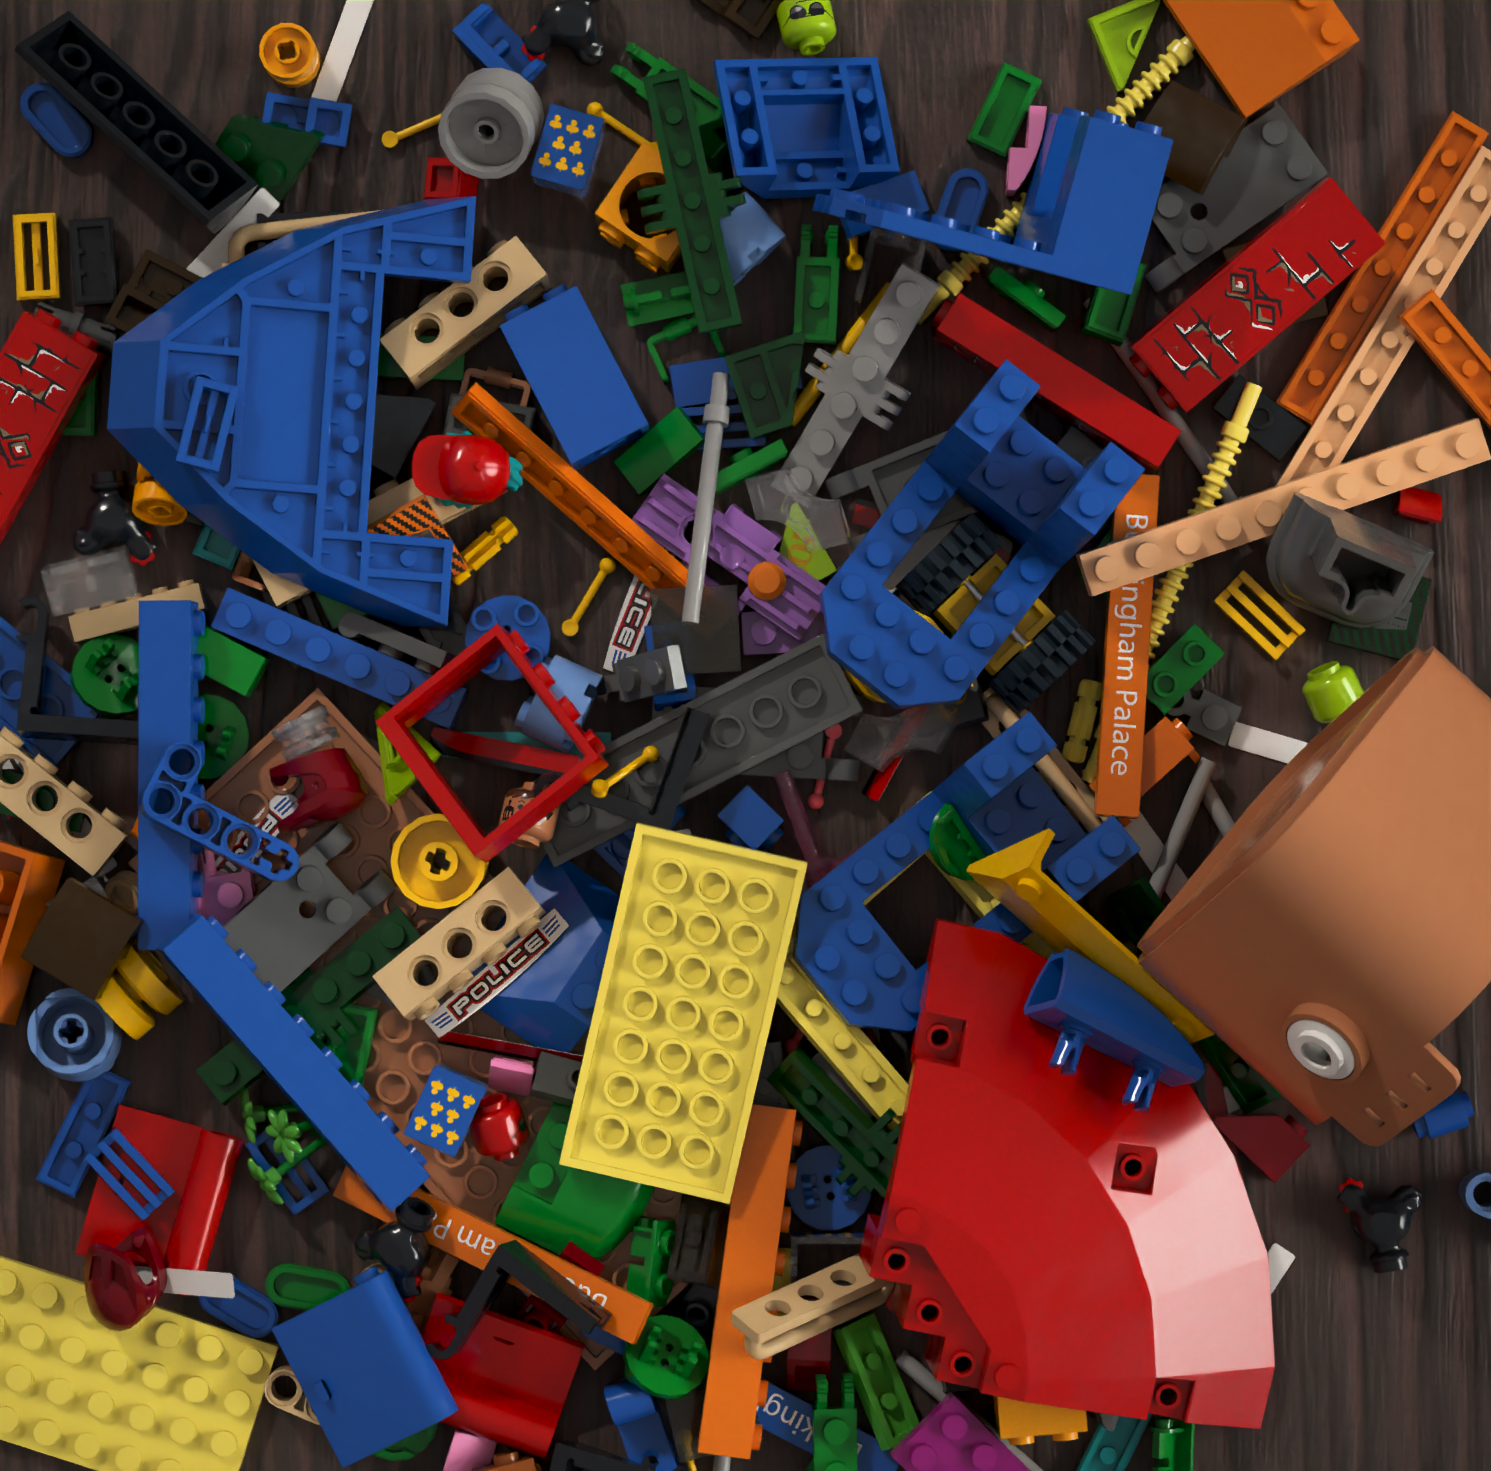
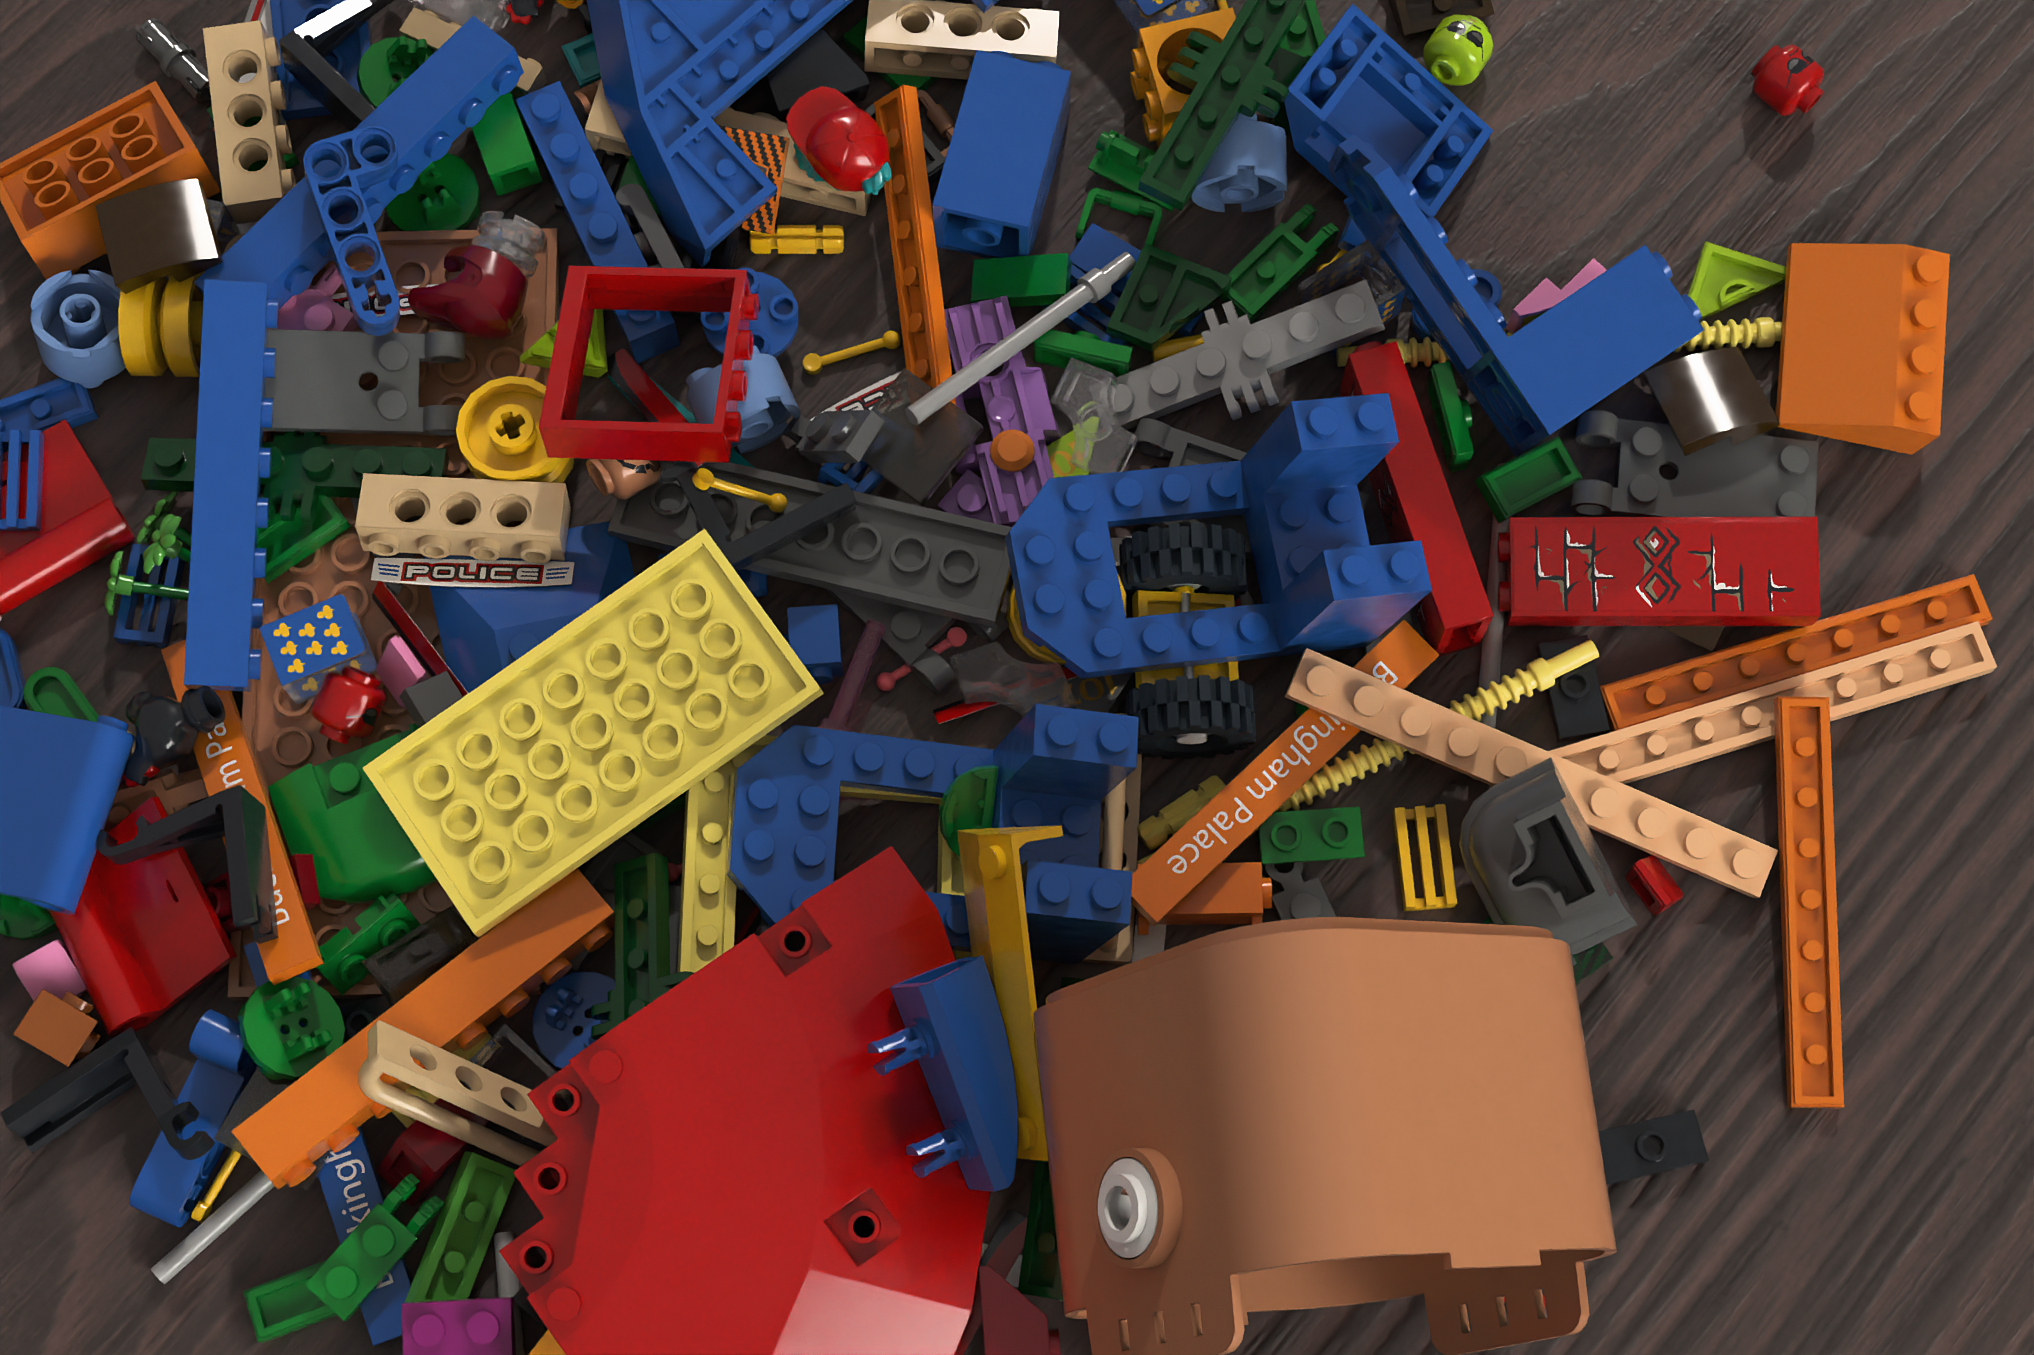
camera: 40 degrees right, 15 degrees down
(1004, 110) = (1566, 254): green tile -> none

